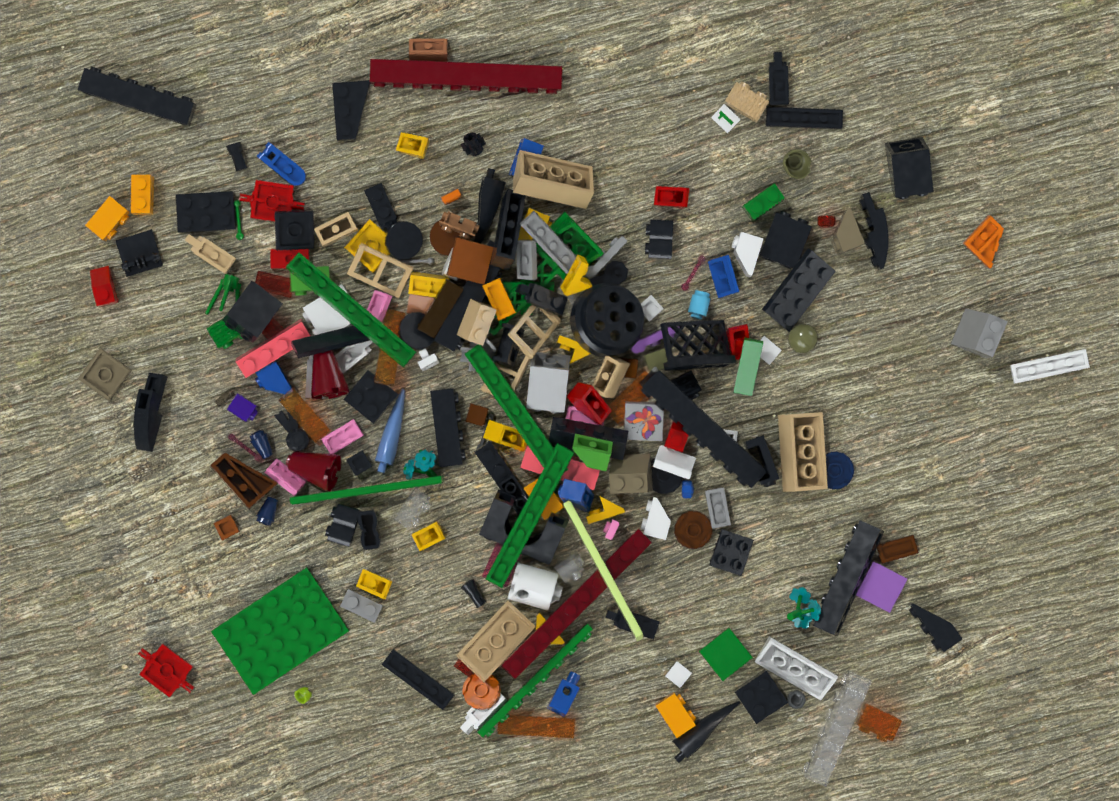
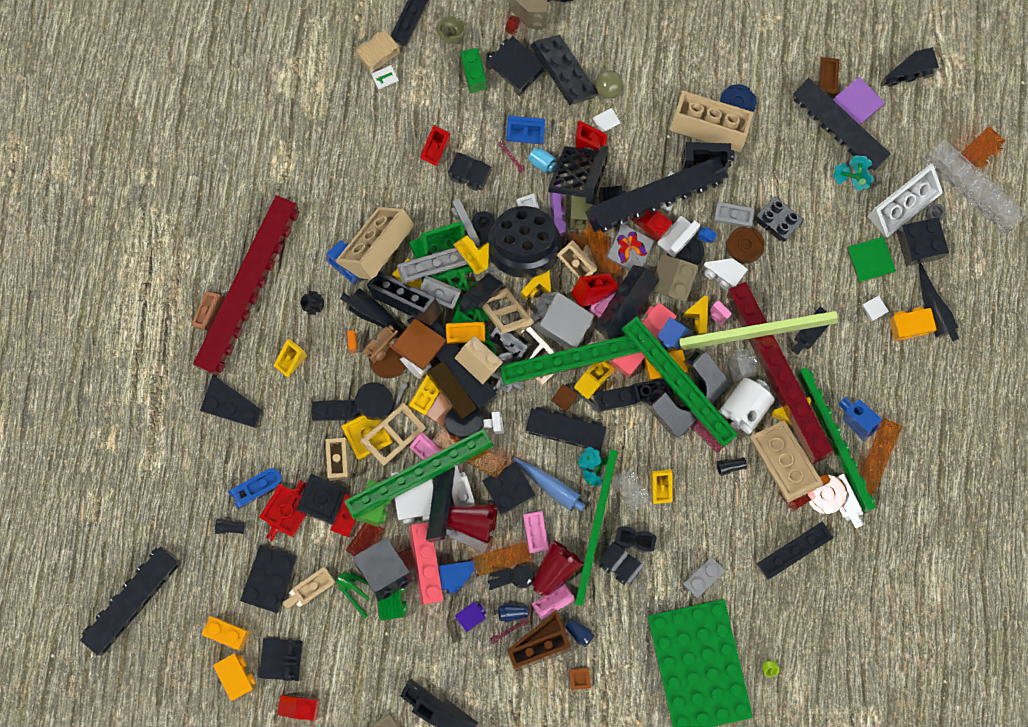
camera: 70 degrees left, 10 degrees down
(239, 235) = (305, 555): green hinge -> none
(359, 463) = (567, 525): black plate -> none
(374, 583) = (688, 555): yellow slope -> none
(593, 451) = (642, 299): bright green slope -> none
(746, 251) = (513, 99): white slope -> none
(748, 366) = (616, 138): tile -> none
(778, 81) = (370, 18): black hinge -> none

